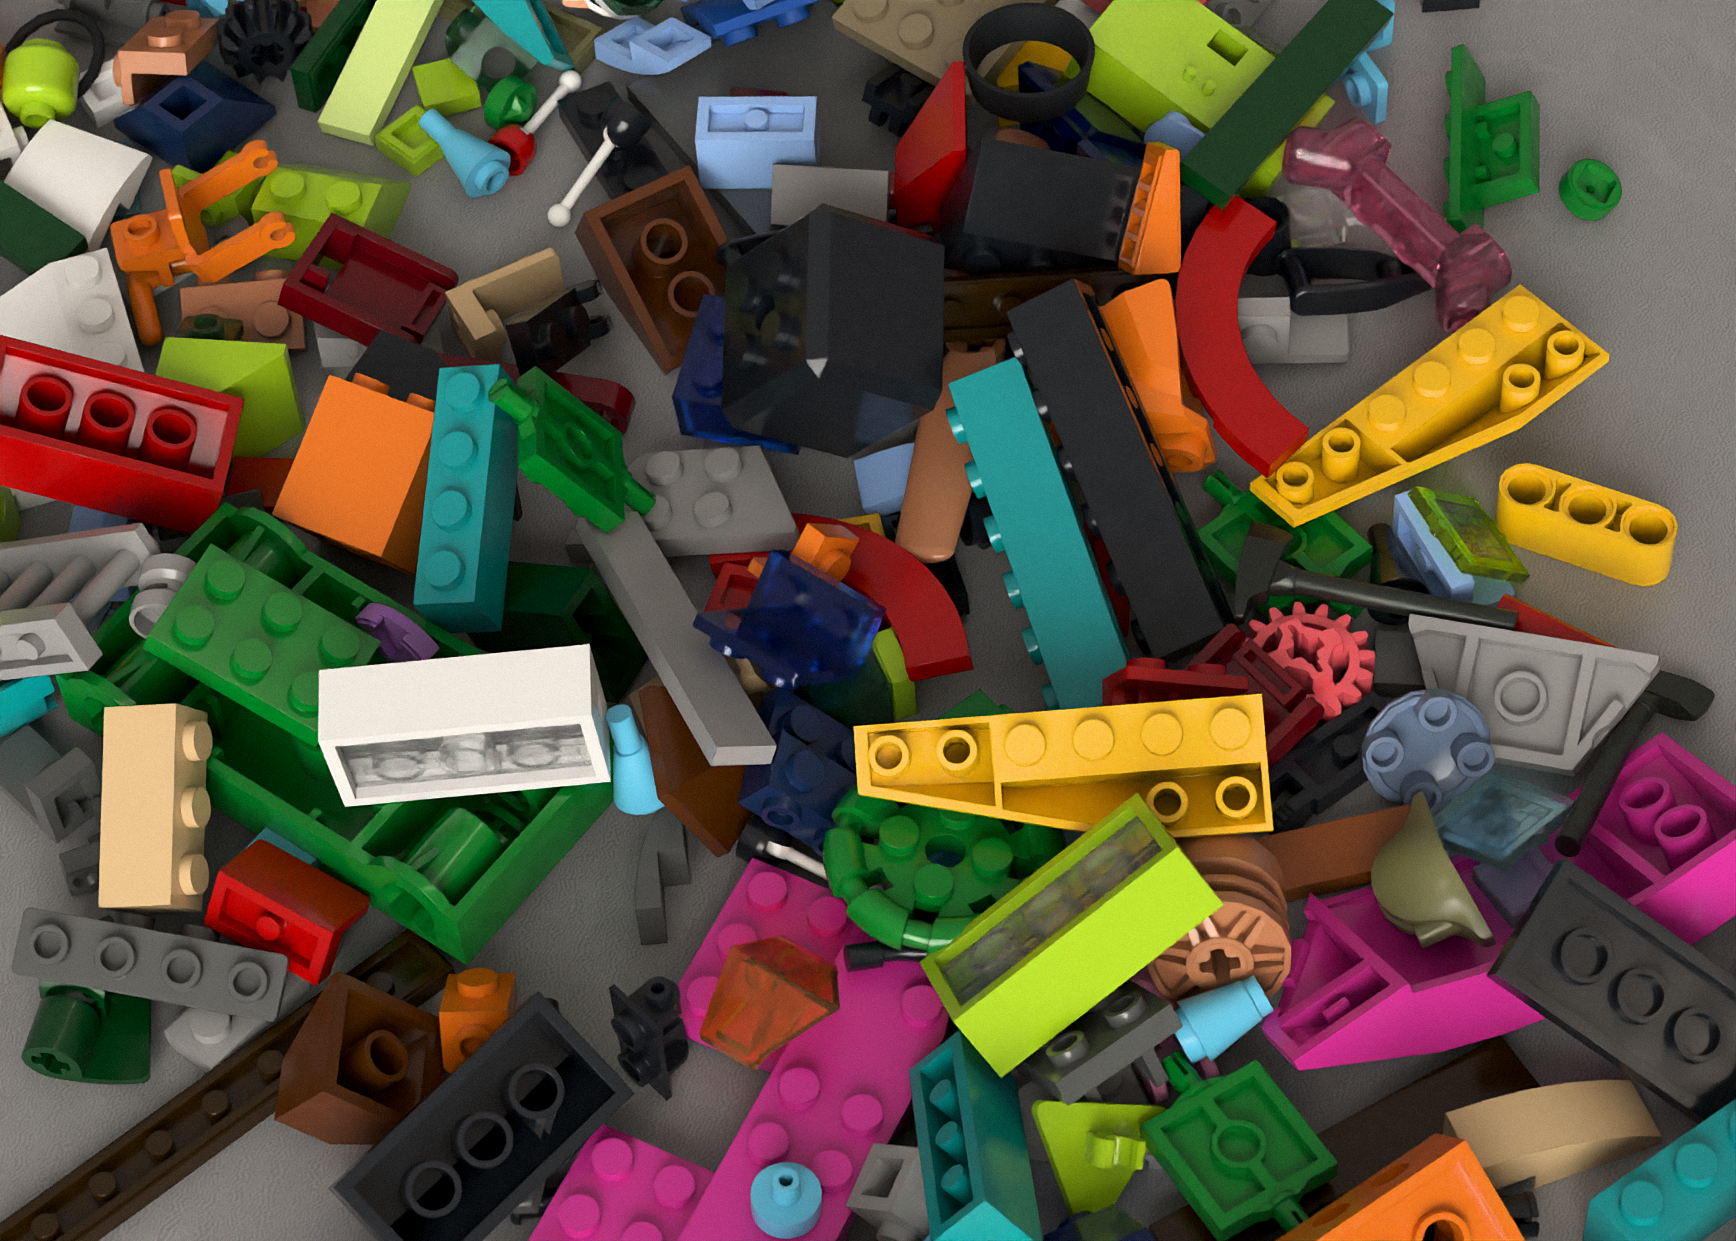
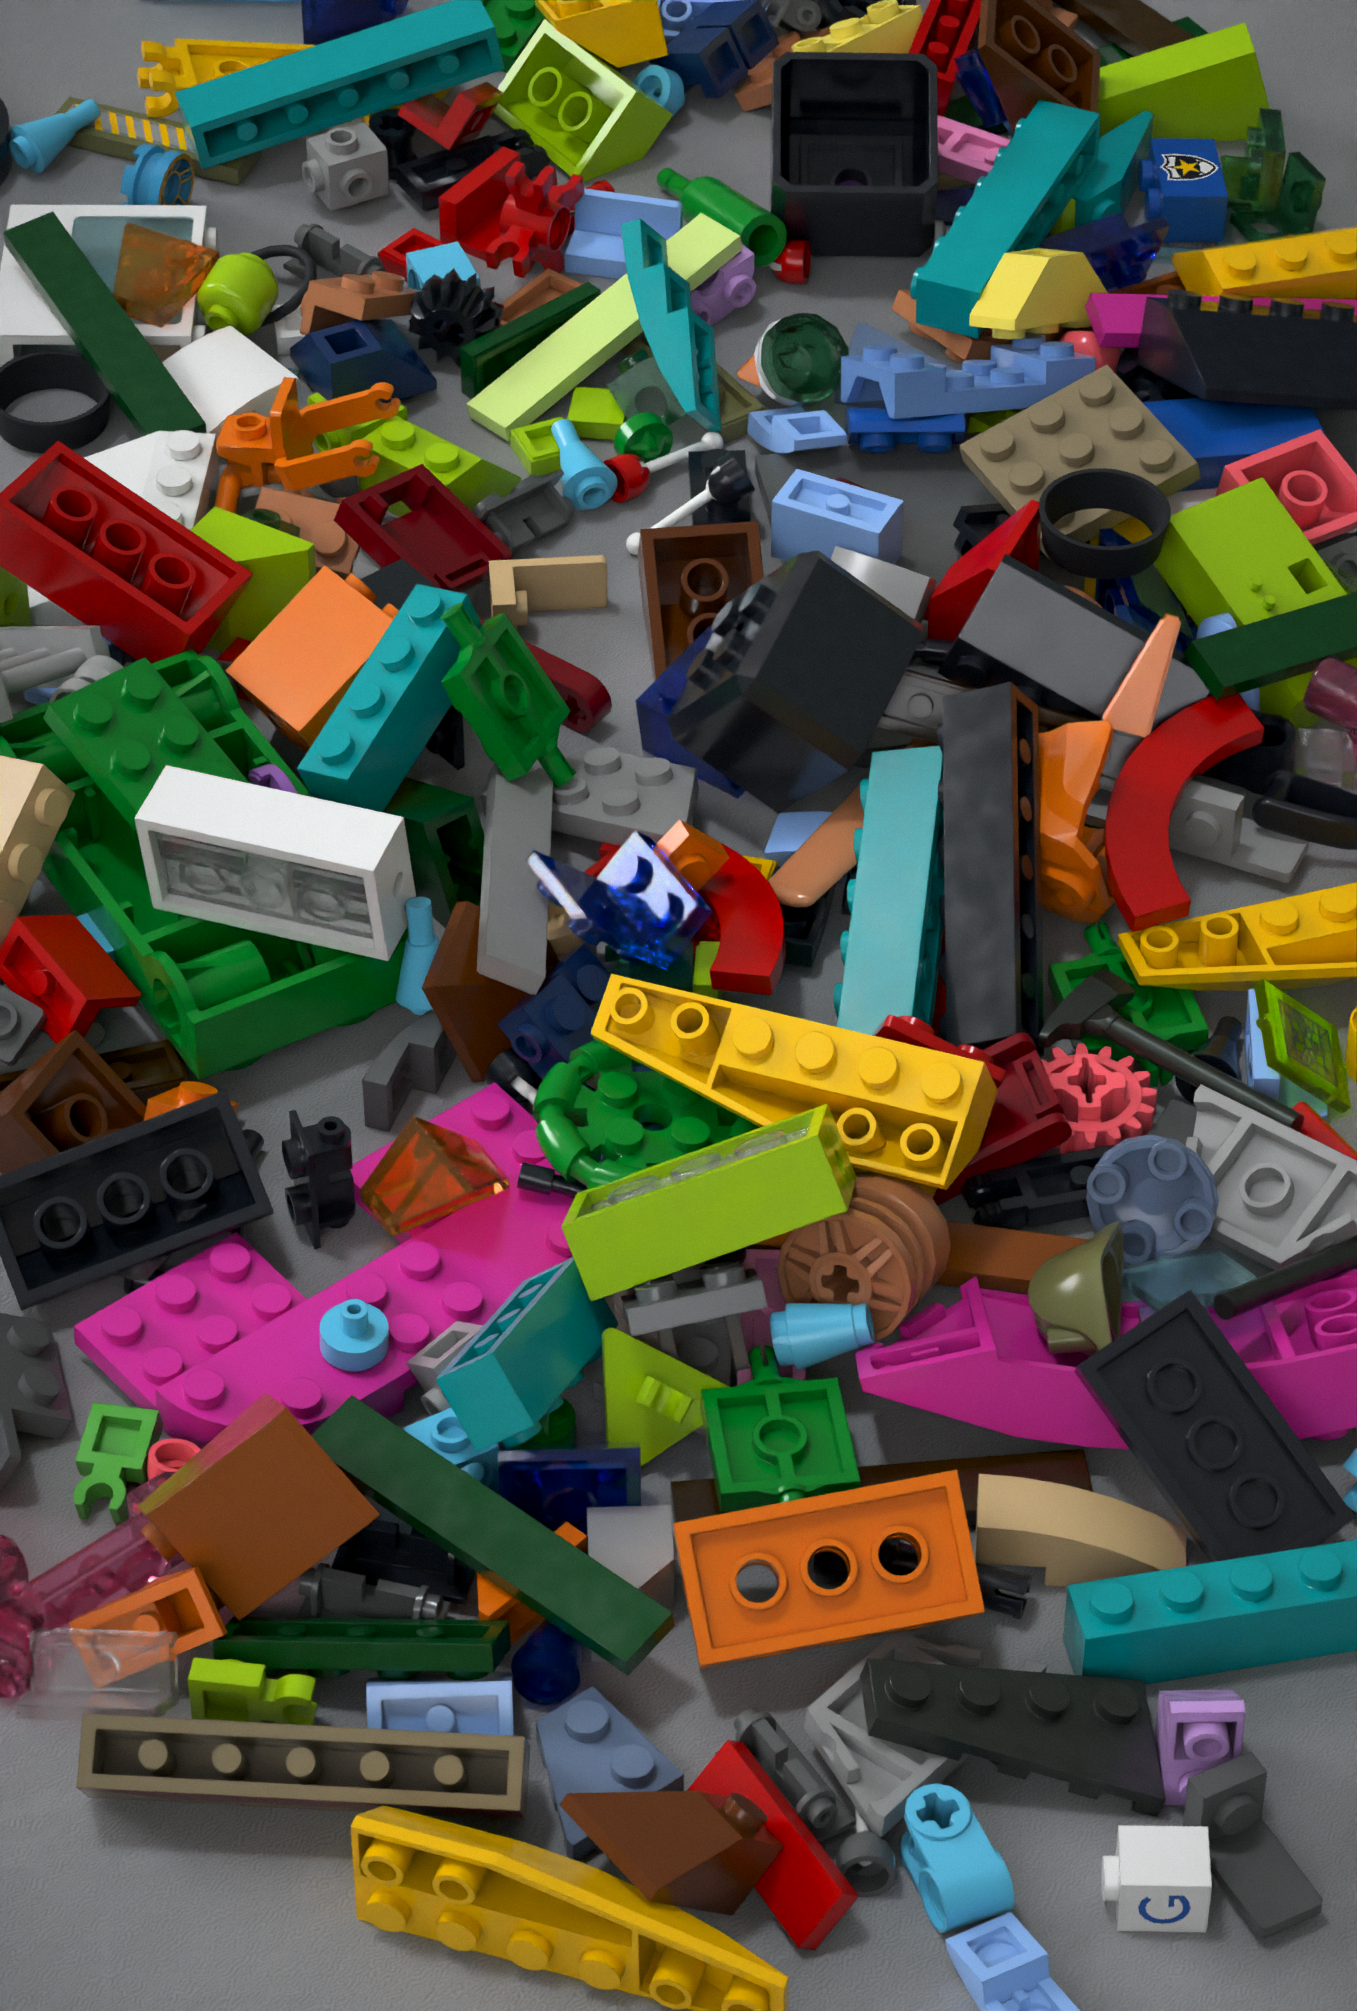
camera: 20 degrees right, 10 degrees down
(447, 221) = (529, 502): none -> dark grey hinge
(557, 328) = (566, 618): black hinge -> none

